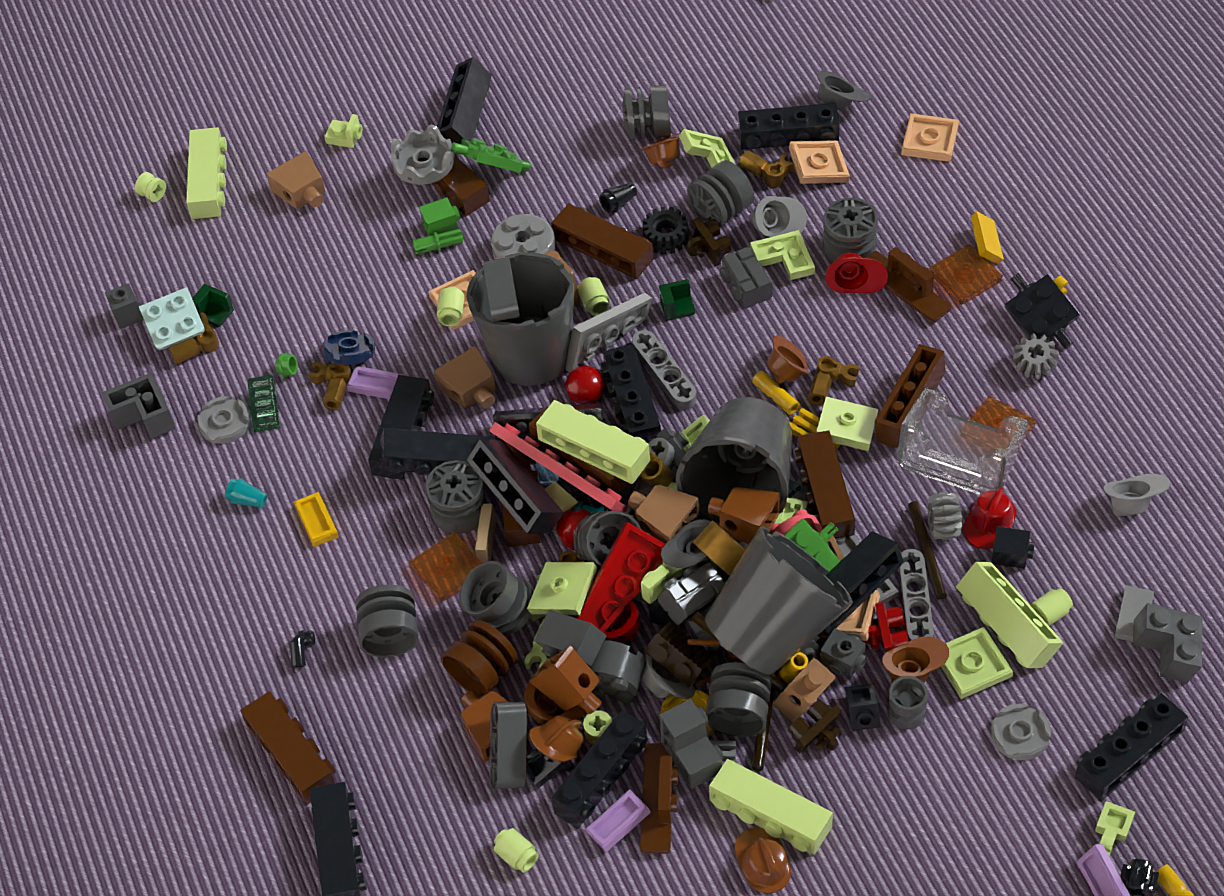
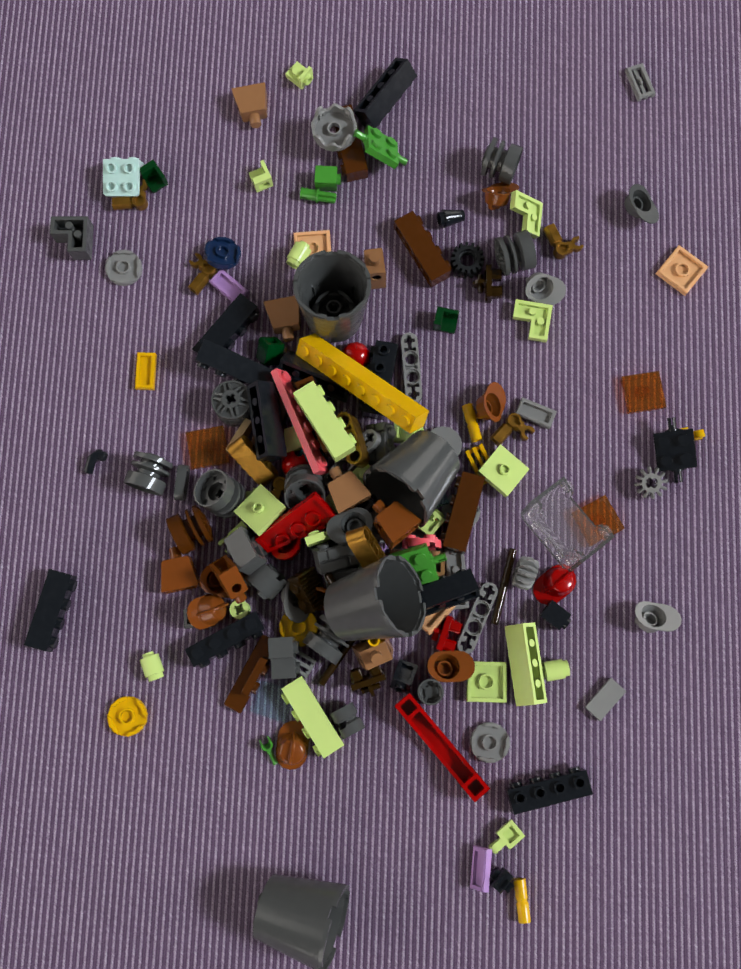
camera: 25 degrees right, 25 degrees up
(124, 306) = (98, 149): dark grey brick -> none
(150, 187) = (156, 60): yellowish green wheel -> none
(205, 173) = (196, 66): yellowish green brick -> none
(243, 493) = (110, 332): teal cone -> none
(259, 388) = (150, 254): clear green slope -> none
(286, 364) = (179, 246): bright green plate -> none
(287, 746) = (54, 528): reddish brown brick -> none
(356, 251) = (261, 178): none -> yellowish green panel
(436, 618) = (181, 482): none -> dark grey beam
(471, 422) = (269, 350): none -> dark green panel
(500, 289) = (316, 281): dark grey beam -> none
(508, 745) = (177, 599): dark grey beam -> none
(518, 544) = (245, 454): none -> pearl gold beam
(533, 227) = (370, 237): light grey plate -> none
(593, 296) = (394, 290): yellowish green brick -> none
(605, 328) = (370, 327): light grey wing -> none
(615, 392) = (362, 383): none -> yellow brick
(617, 820) = (220, 677): lavender tile -> none
(705, 823) = (270, 703): none -> clear light blue piece
(733, 875) = (268, 747): none -> bright green hand
(746, 277) = (499, 325): dark grey brick -> none
(761, 130) = (591, 216): black brick -> none
(812, 779) = (347, 720): none -> dark grey wheel
(819, 162) = (596, 255): light nougat tile -> none
(843, 654) = (414, 646): dark grey brick -> none
(849, 227) = (578, 333): dark grey wheel -> none
(850, 350) = (536, 413): none -> light grey tile
(856, 274) = (570, 358): red piece -> none
(912, 284) = (600, 381): reddish brown bracket -> none
(923, 371) = (559, 467): reddish brown brick -> none
(986, 237) = (672, 372): yellow tile -> none
(1007, 775) = (442, 747): none -> red arch
(1175, 635) = (619, 735): dark grey brick -> none

